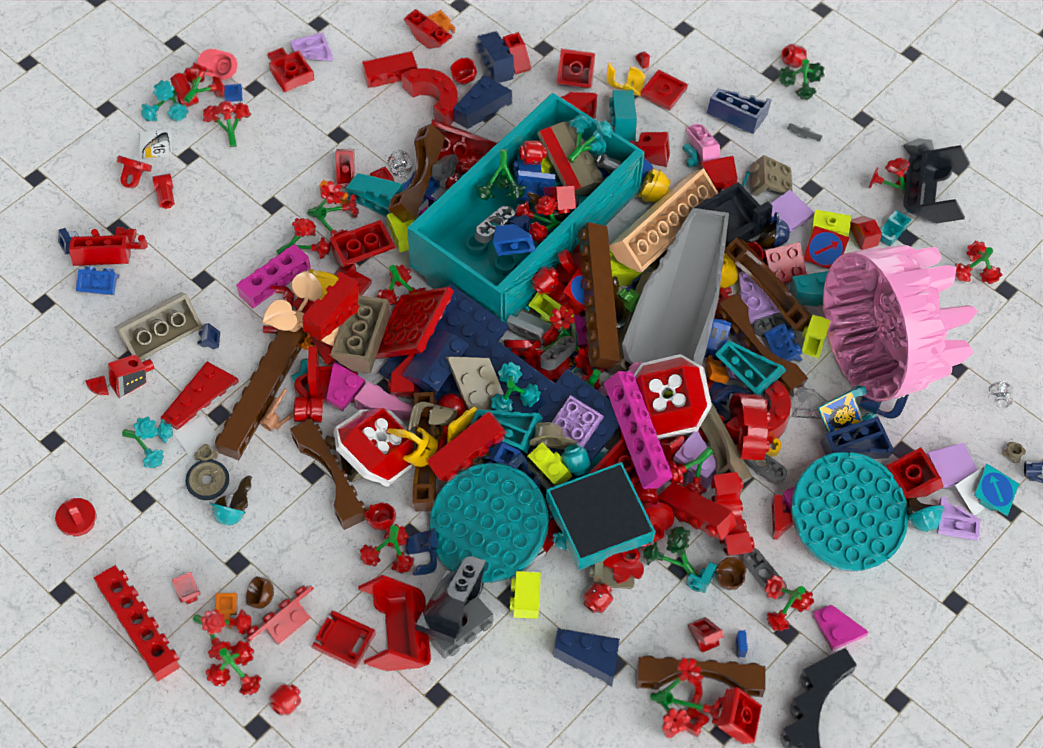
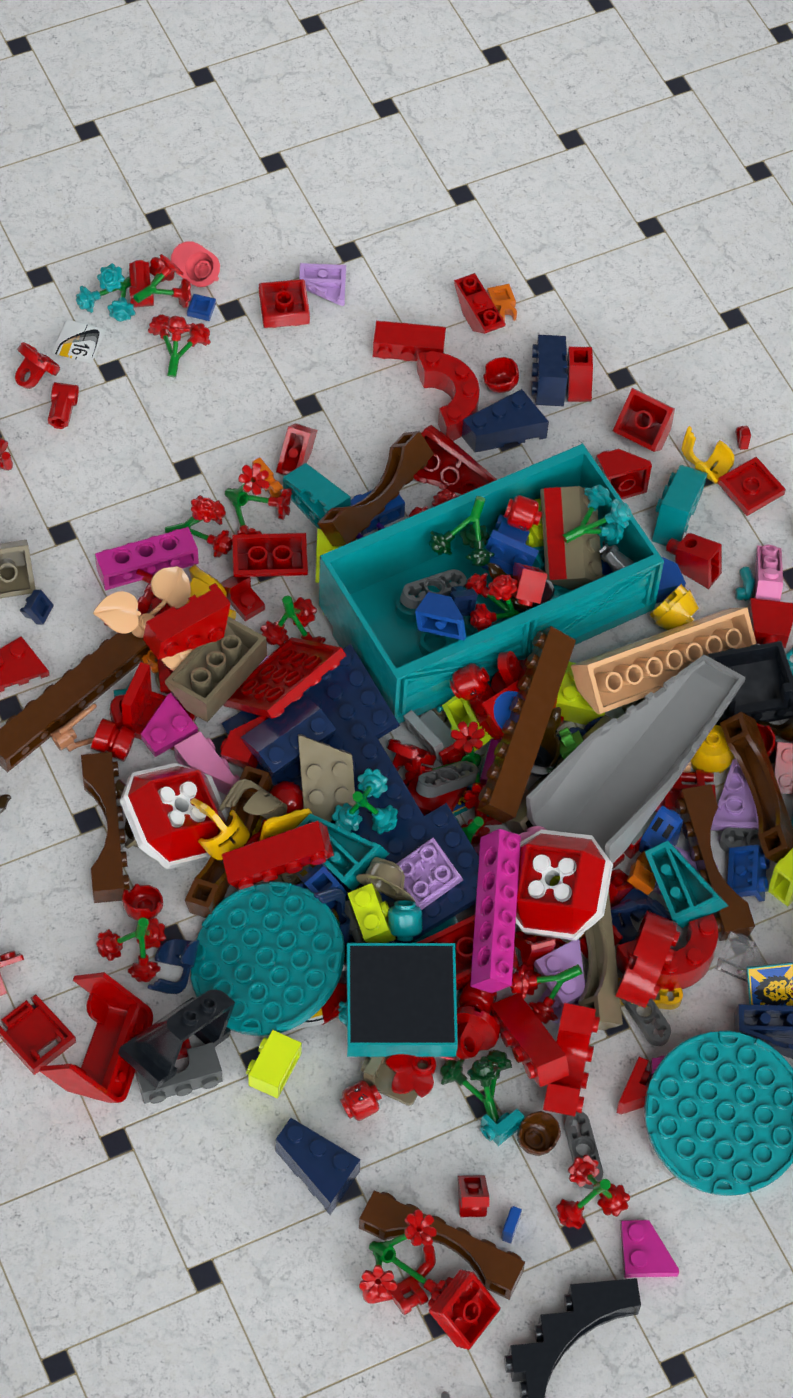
camera: 20 degrees right, 0 degrees up
(276, 54) = (277, 275): red tile -> none
(383, 173) = (338, 476): red tile -> none
(399, 163) = (365, 468): clear head -> none
(444, 167) = (417, 493): dark grey beam -> none

